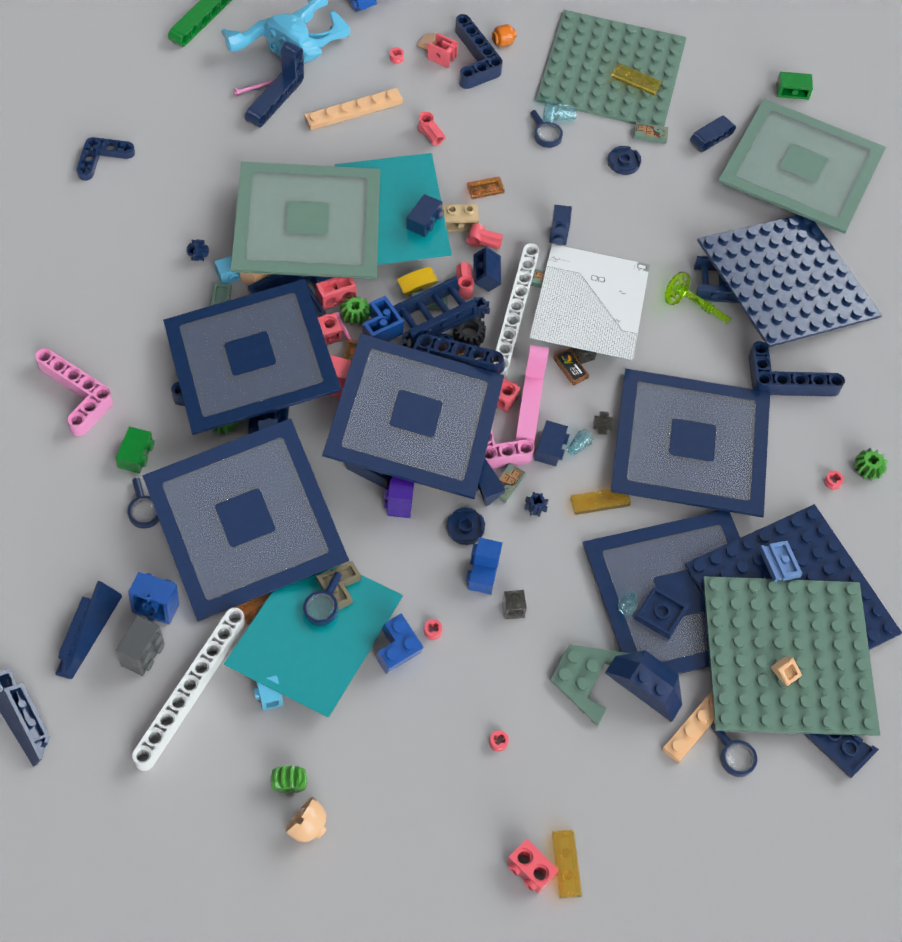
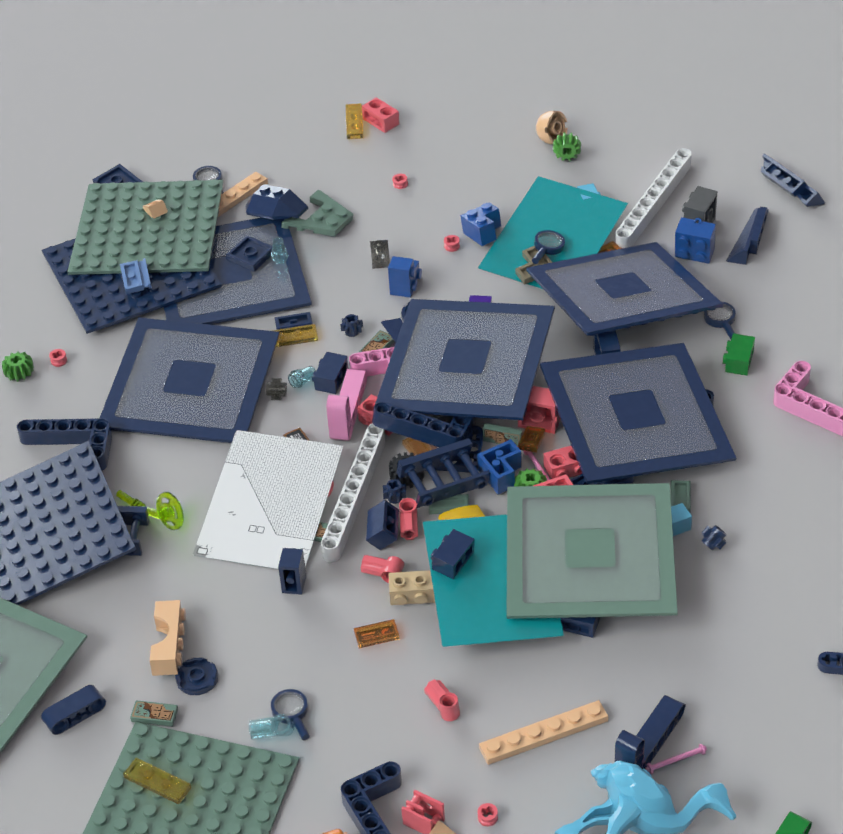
camera: 170 degrees left, 15 degrees down
(603, 520) = (293, 320): none -> dark blue tile
(655, 197) = (166, 655): none -> light nougat arch

